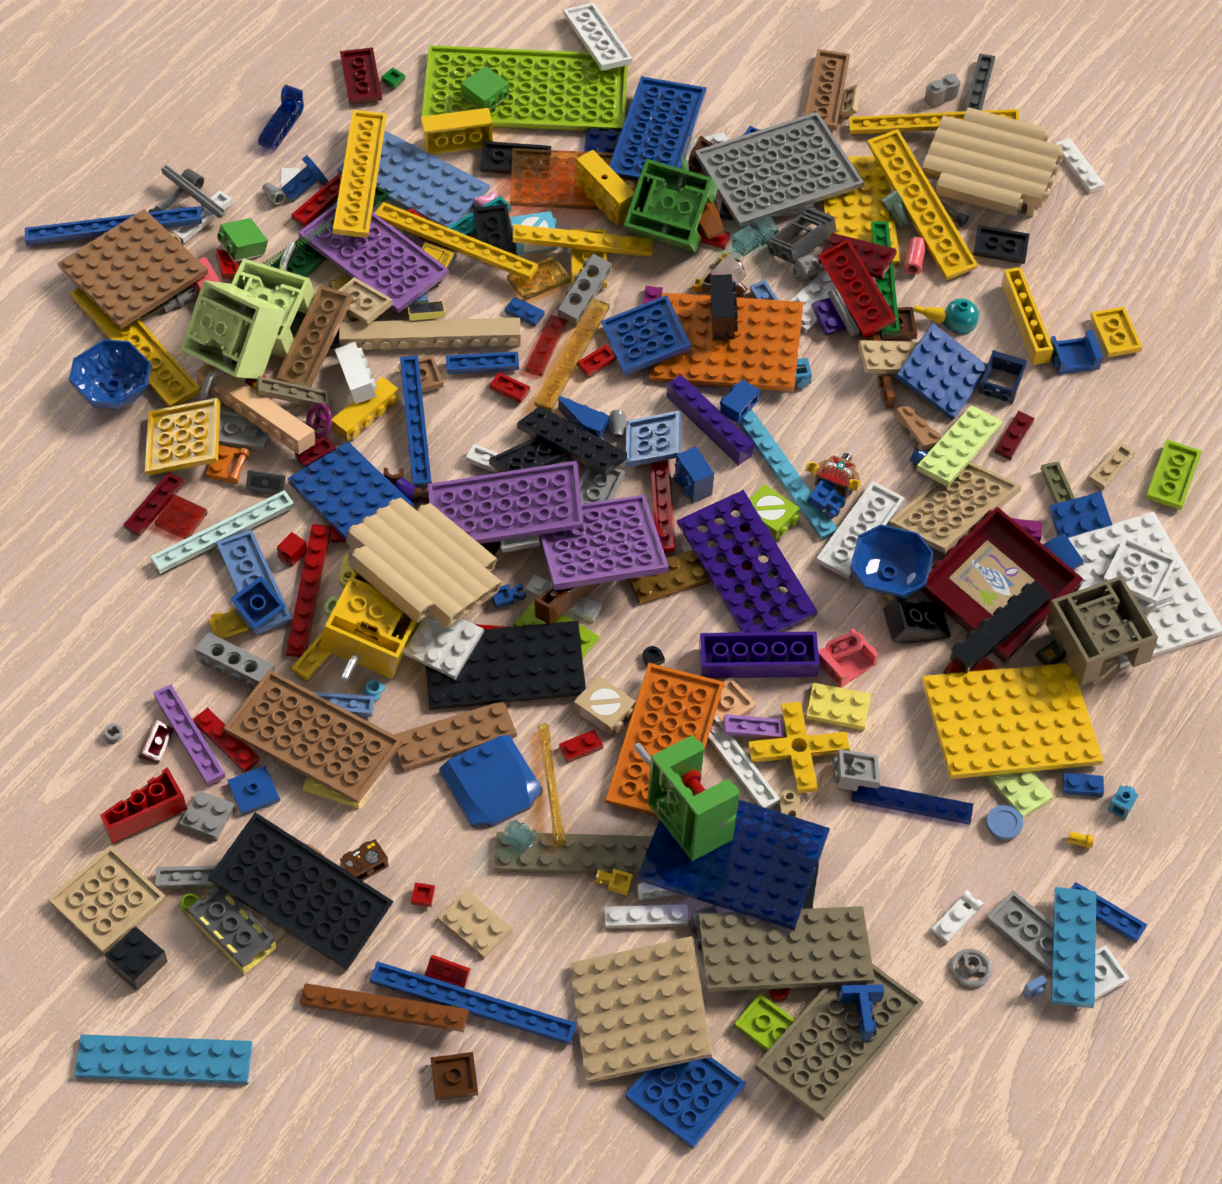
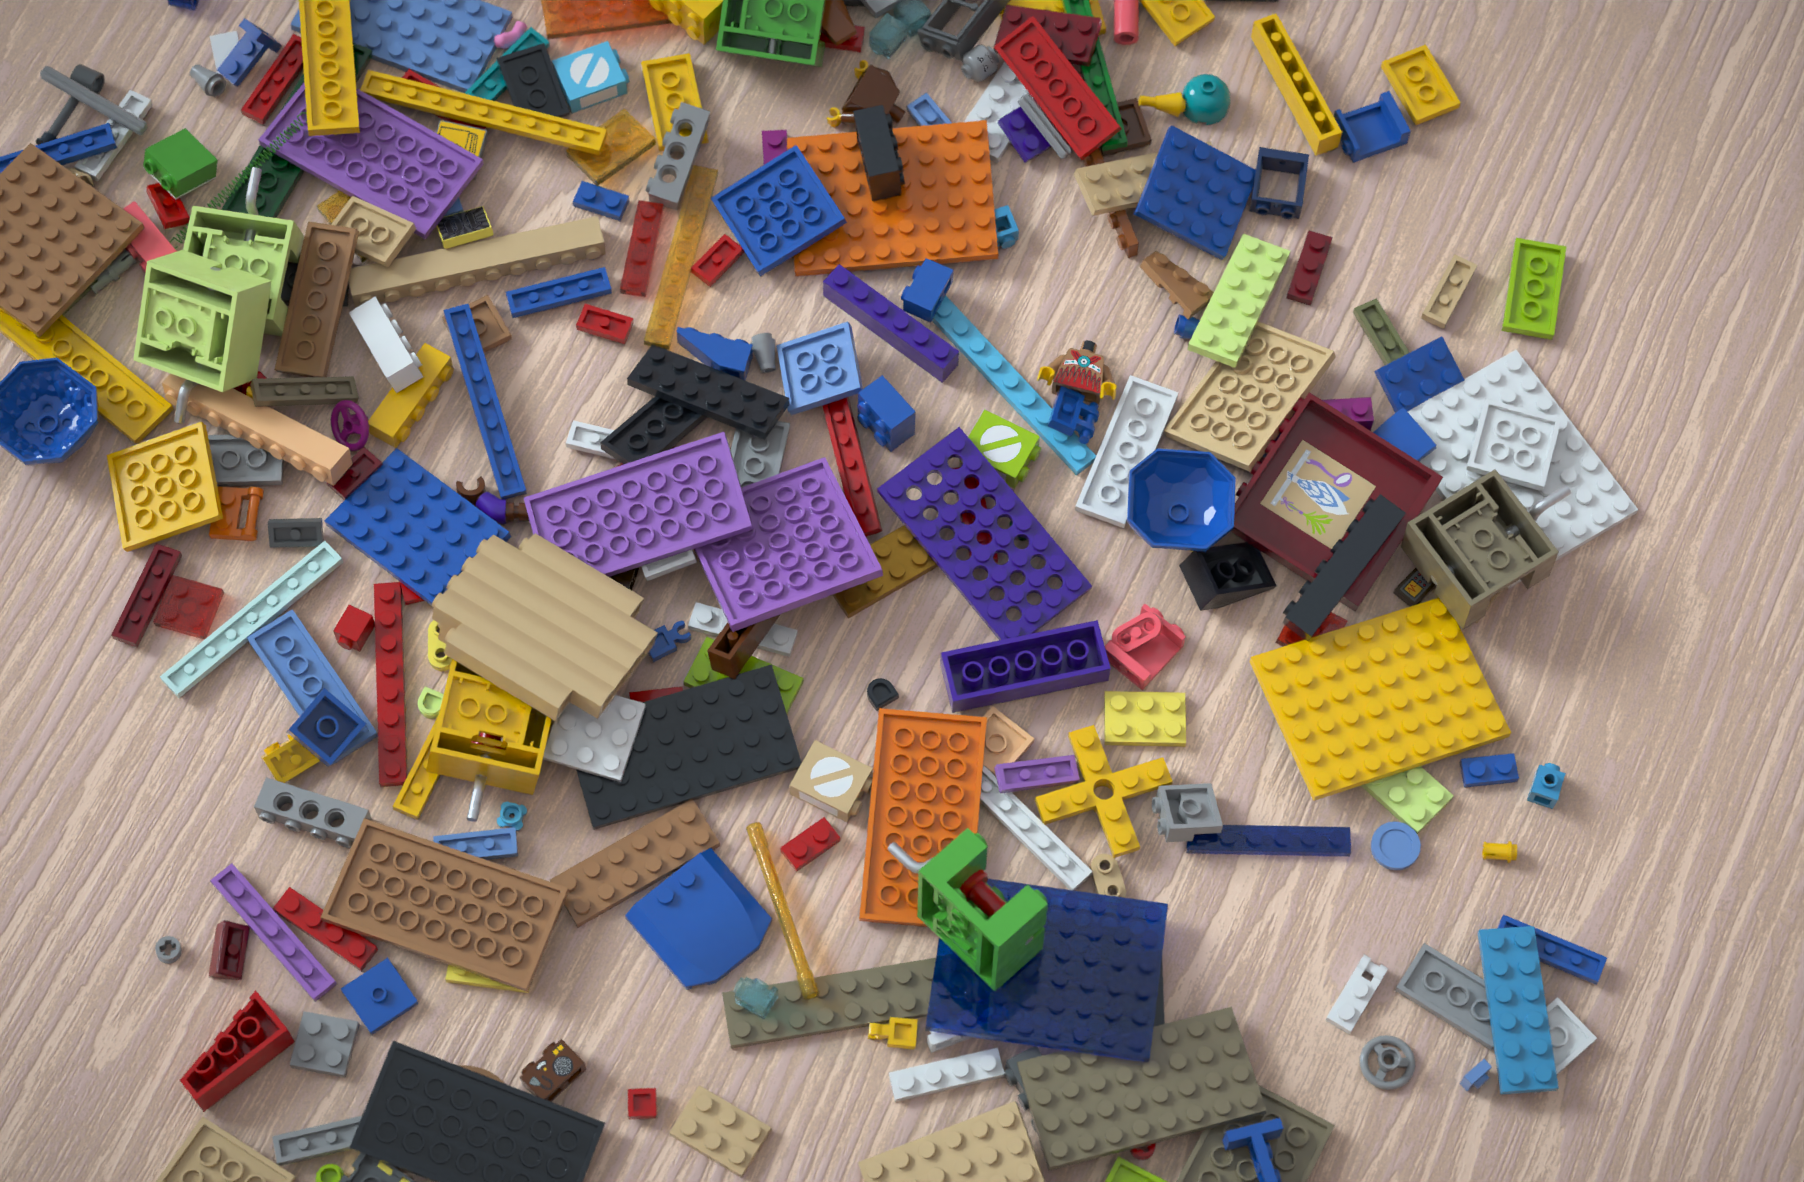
camera: 10 degrees left, 10 degrees up
(582, 240) = (660, 79): yellow plate -> none

